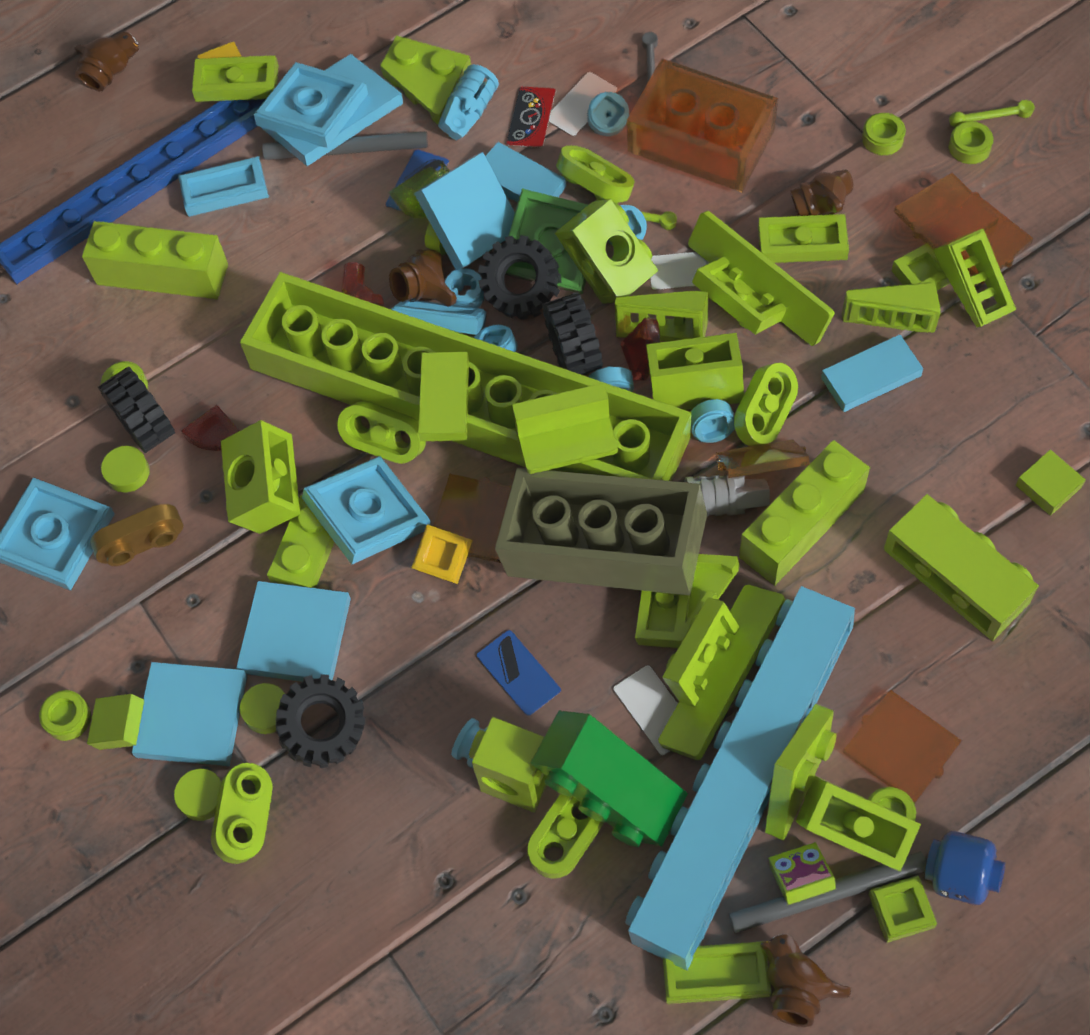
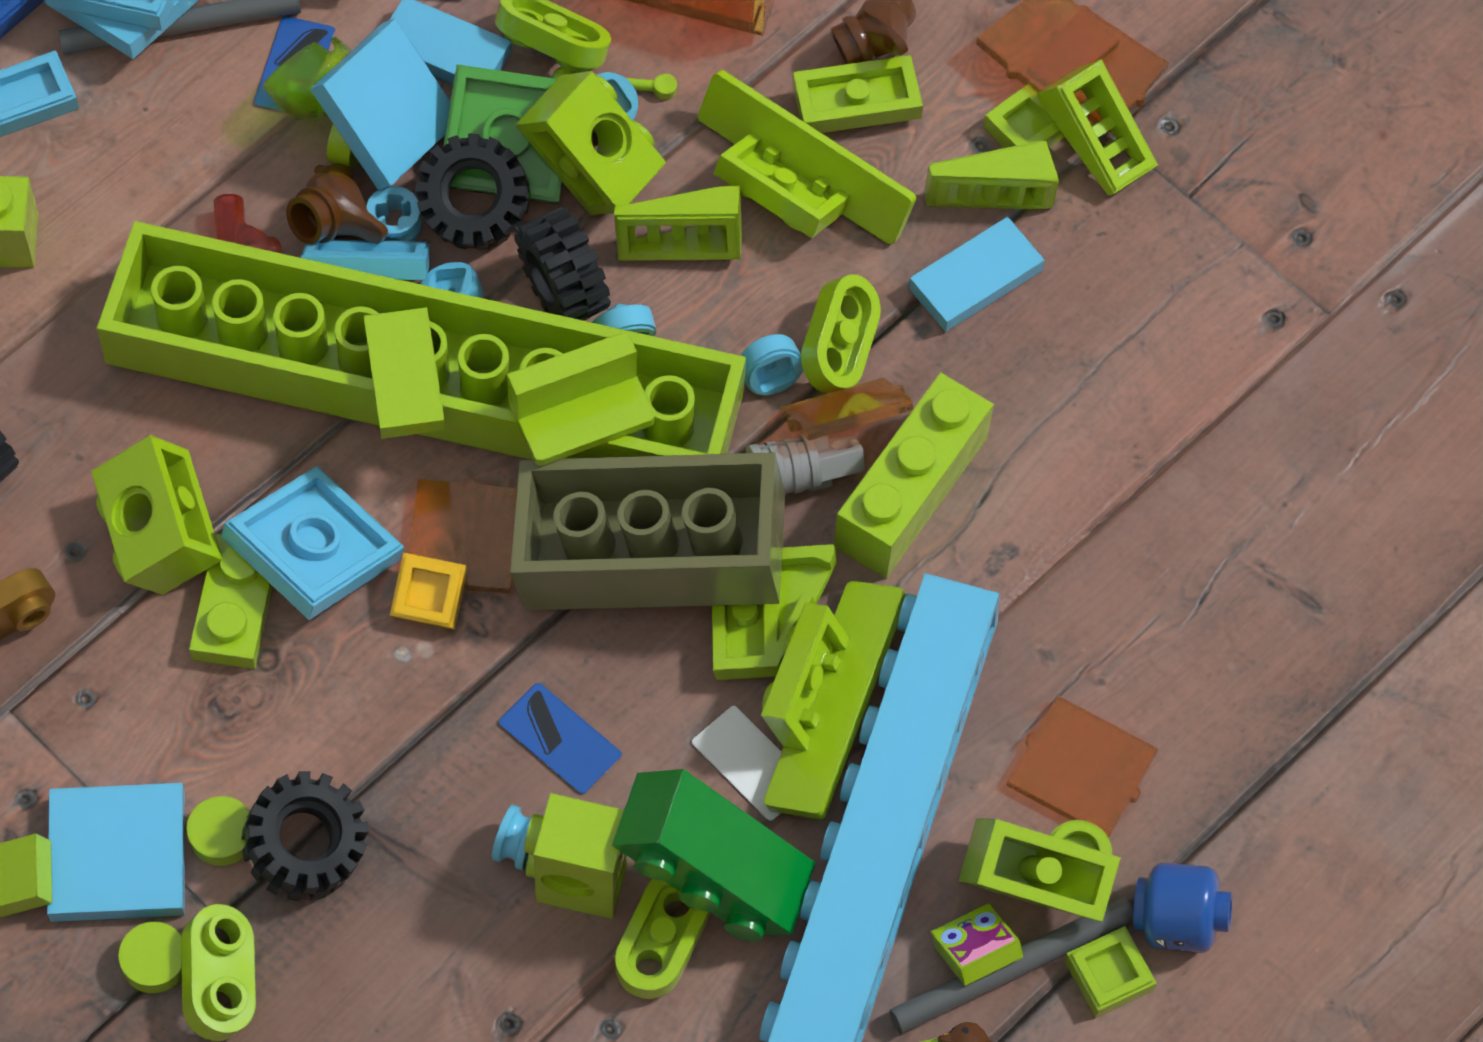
camera: 20 degrees left, 0 degrees up
(210, 429) = (66, 458): clear red tile -> none
(293, 632) = (240, 722): medium azure tile -> none
(384, 433) = (316, 434): lime plate -> none
(635, 347) = (659, 274): clear red tile -> none
(676, 270) = (689, 156): white sticker -> none
(696, 370) = (741, 298): lime brick -> none
(797, 768) = (954, 812): lime wing -> none
(960, 566) = (1127, 522): lime brick -> none
(1050, 482) = (1230, 396): lime tile -> none

